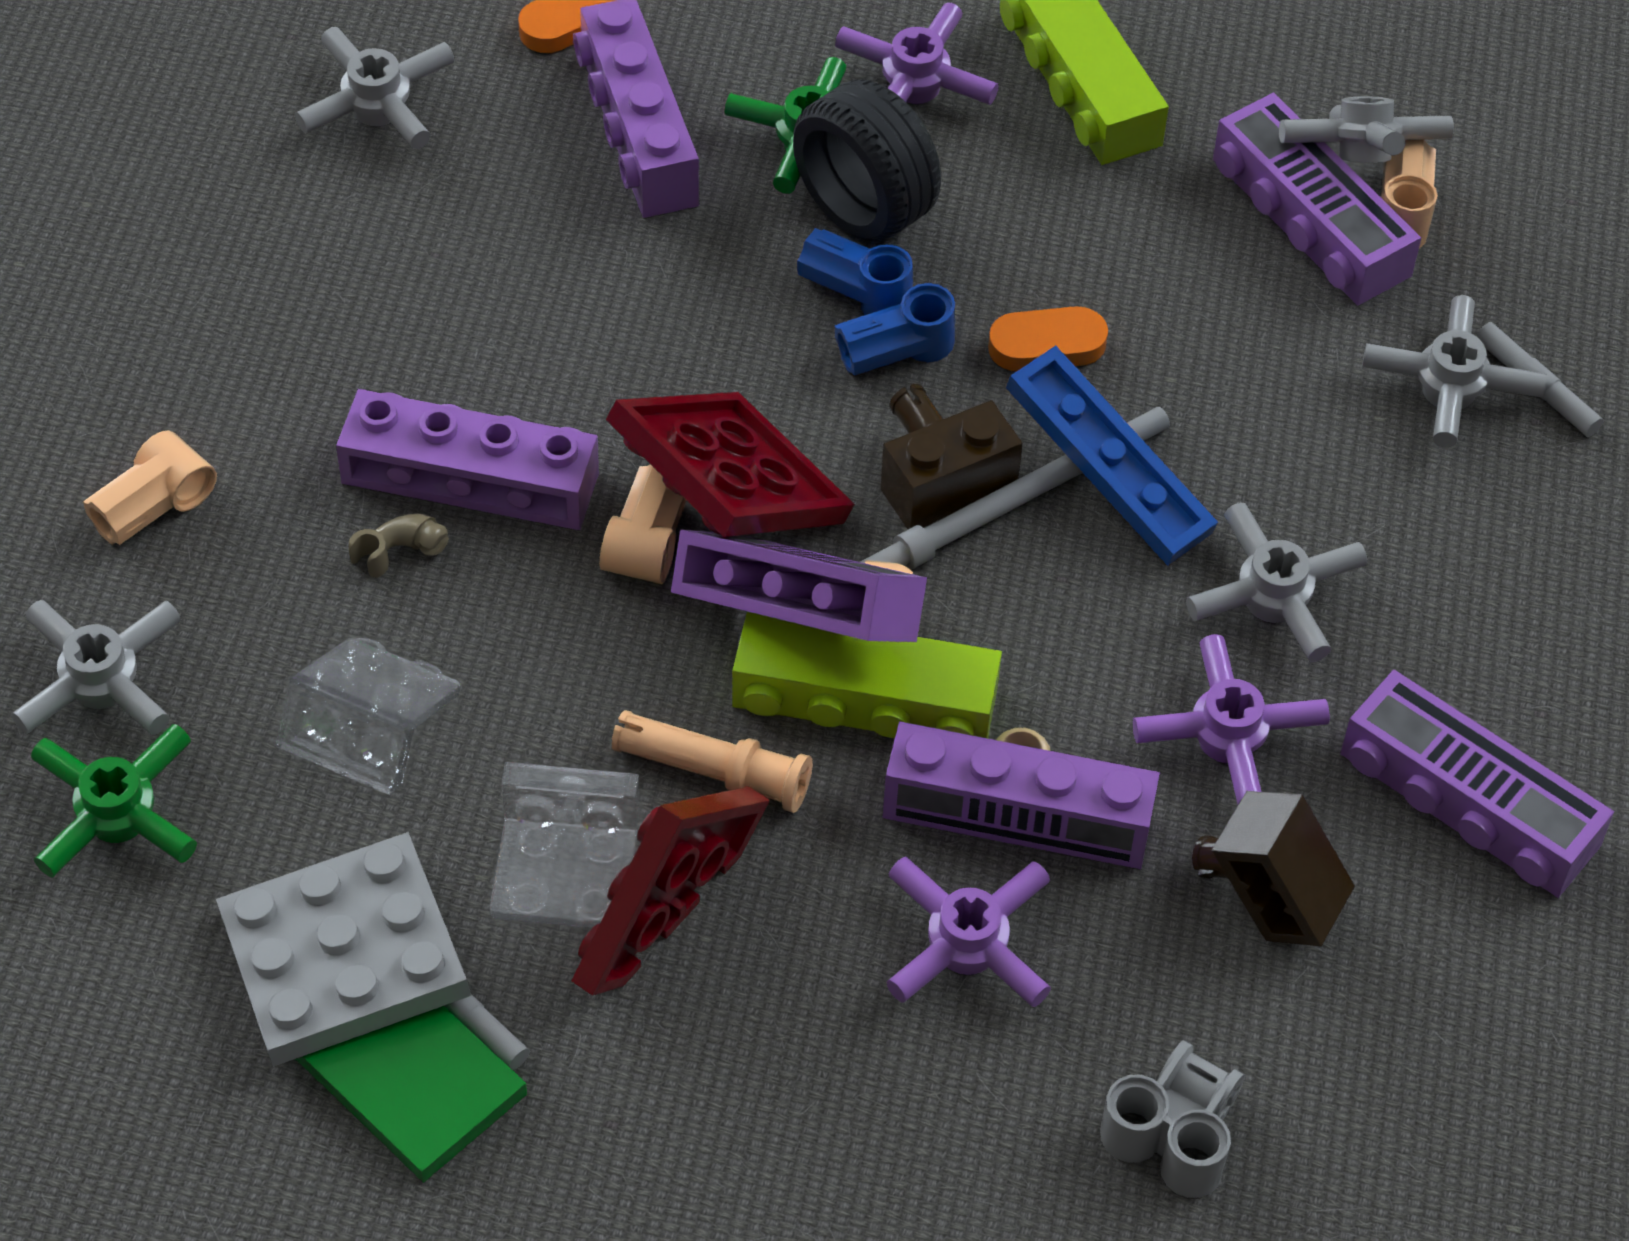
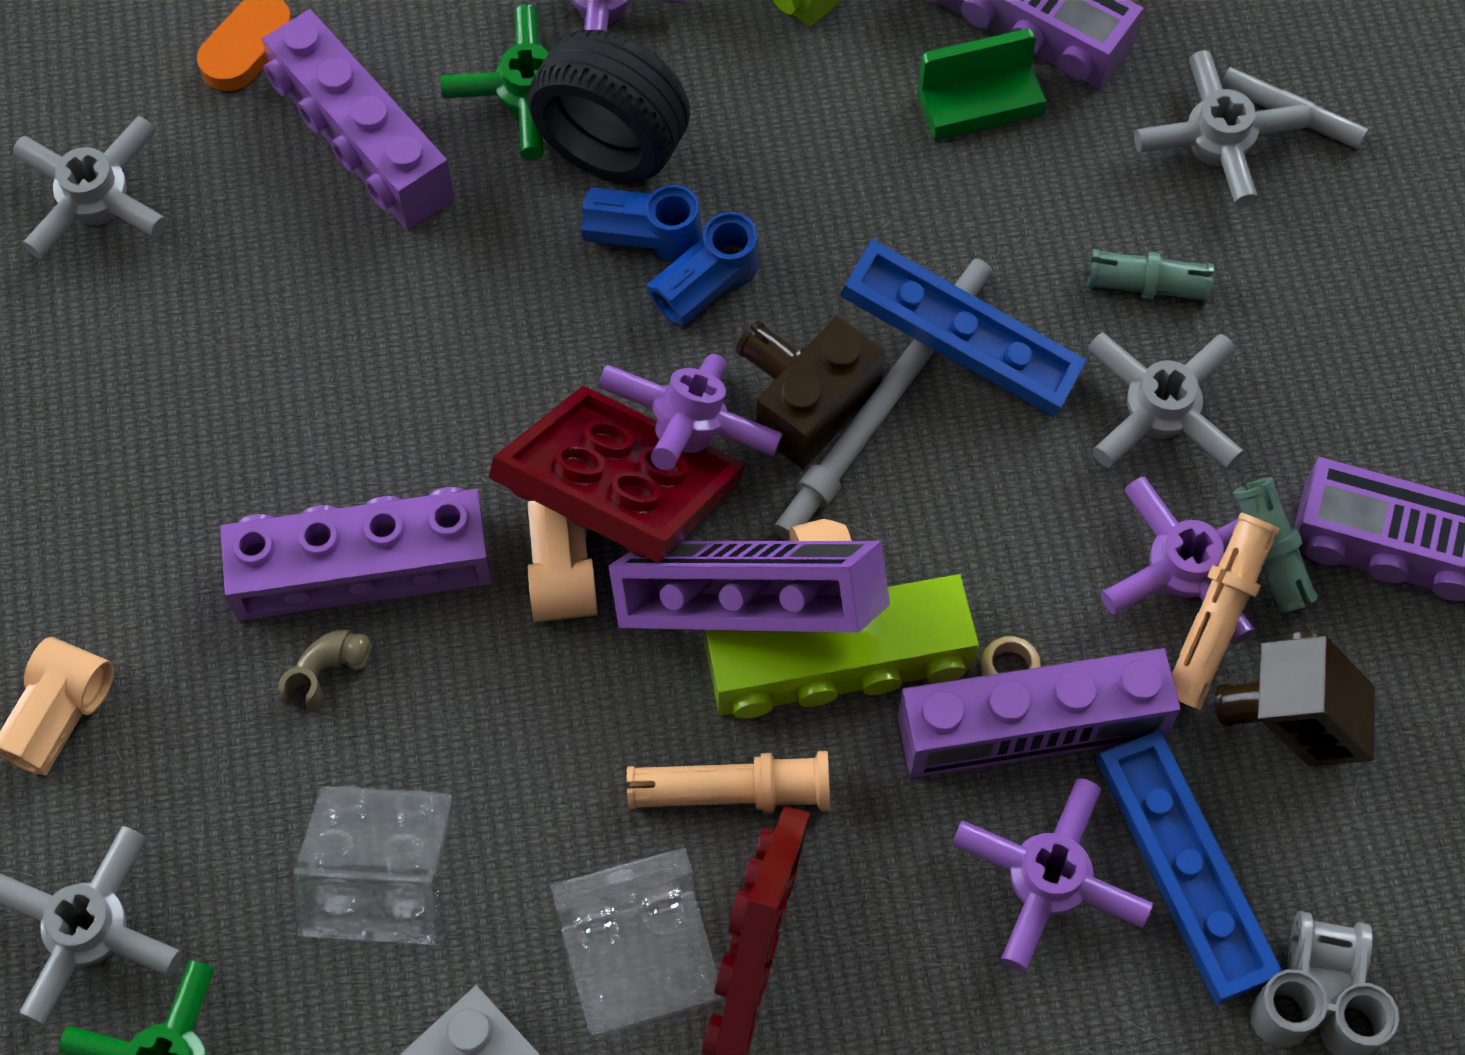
camera: 20 degrees left, 10 degrees up
(820, 437) = (689, 411): none -> medium lavender bar
(1025, 335) = (843, 224): orange tile -> none
(1100, 969) = (1188, 867): none -> blue plate
(1233, 765) = (1225, 600): none -> light nougat pin
(1236, 258) = (980, 84): none -> green panel
(1317, 731) = (1283, 562): none -> sand green pin
(1320, 475) = (1150, 275): none -> sand green pin

